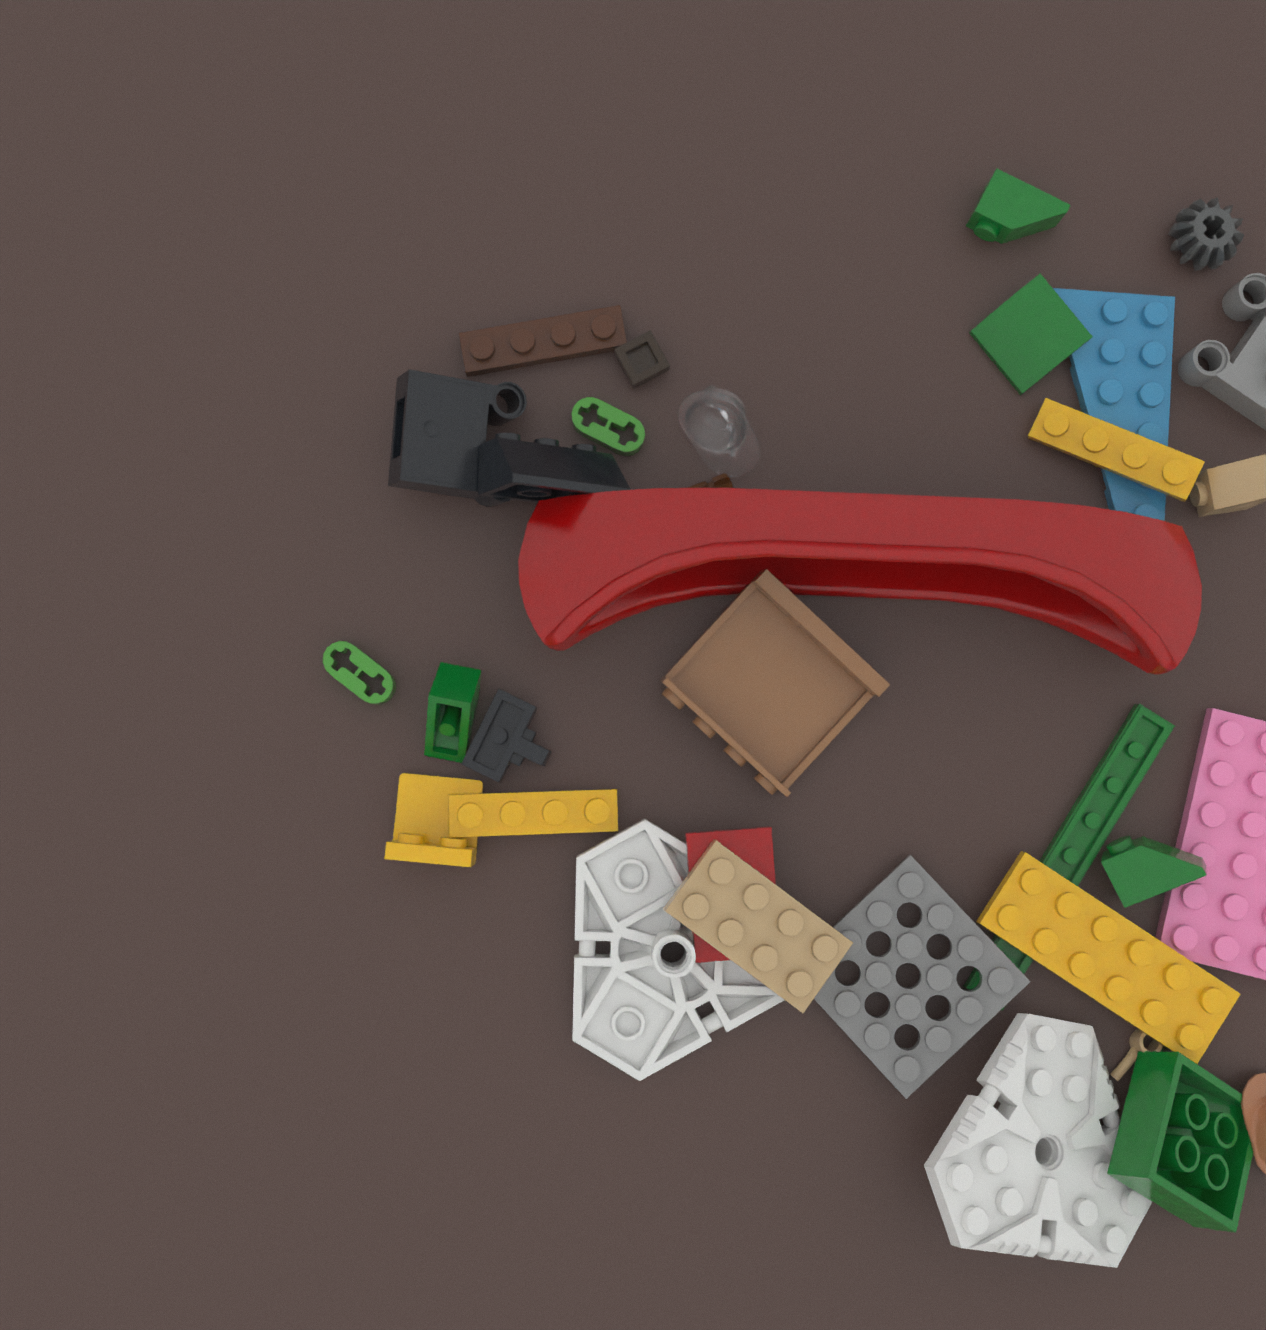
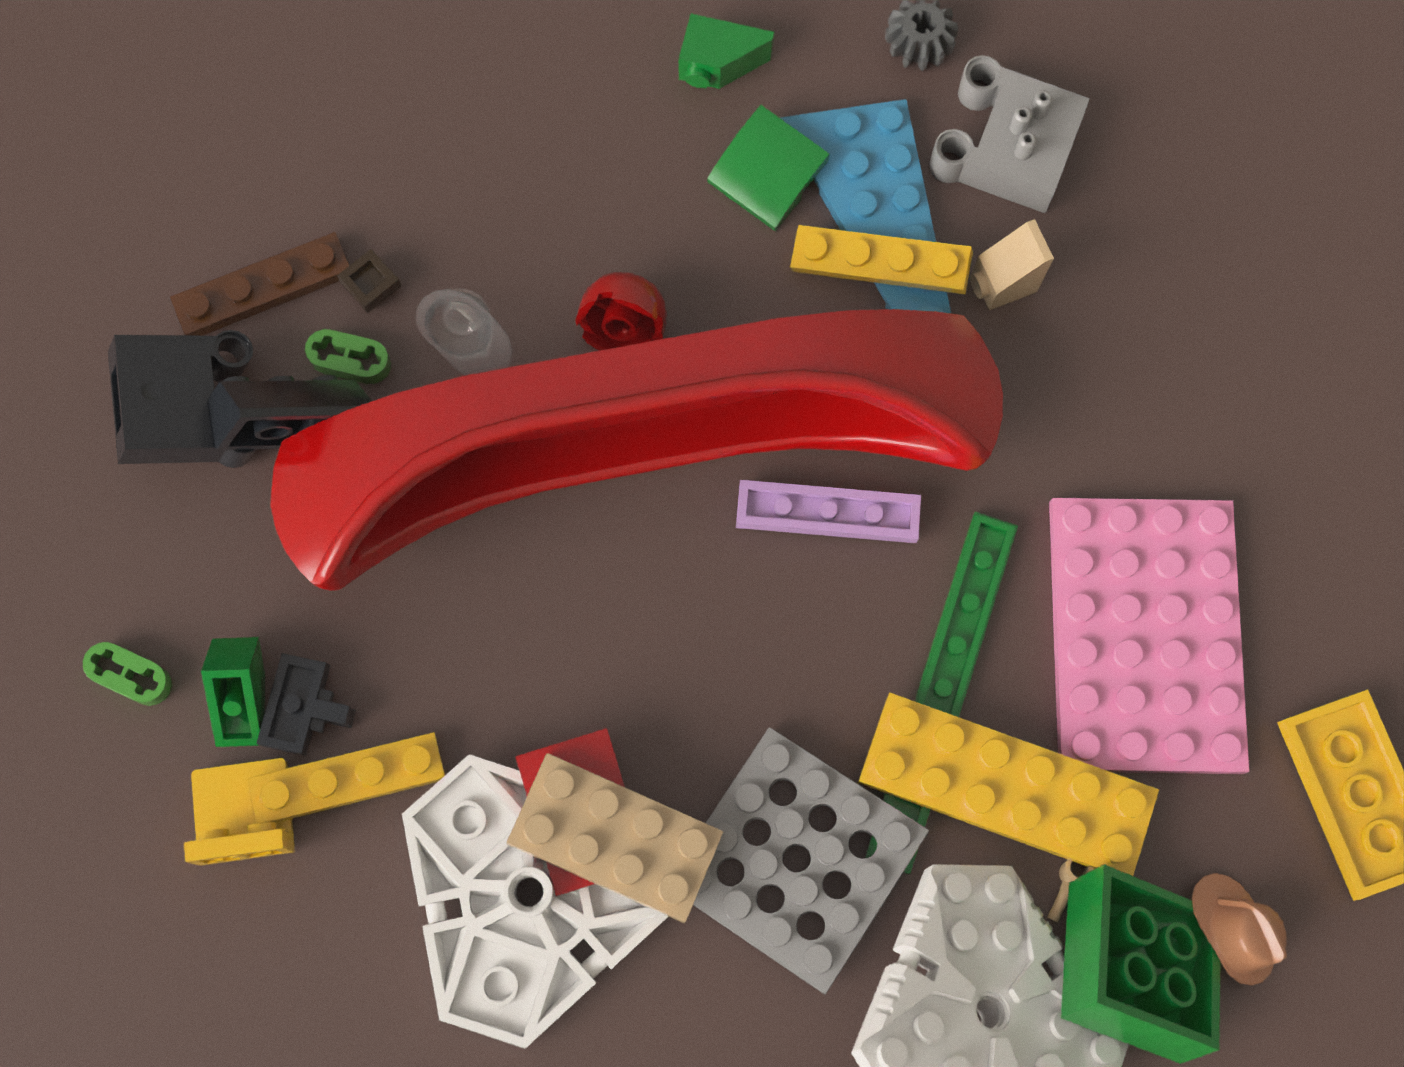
camera: 10 degrees left, 10 degrees down
(771, 682) = (577, 578): medium nougat panel -> none
(868, 447) = (621, 311): none -> red cylinder
(1008, 673) = (828, 511): none -> lavender plate
(1148, 868) = (1022, 678): green slope -> none

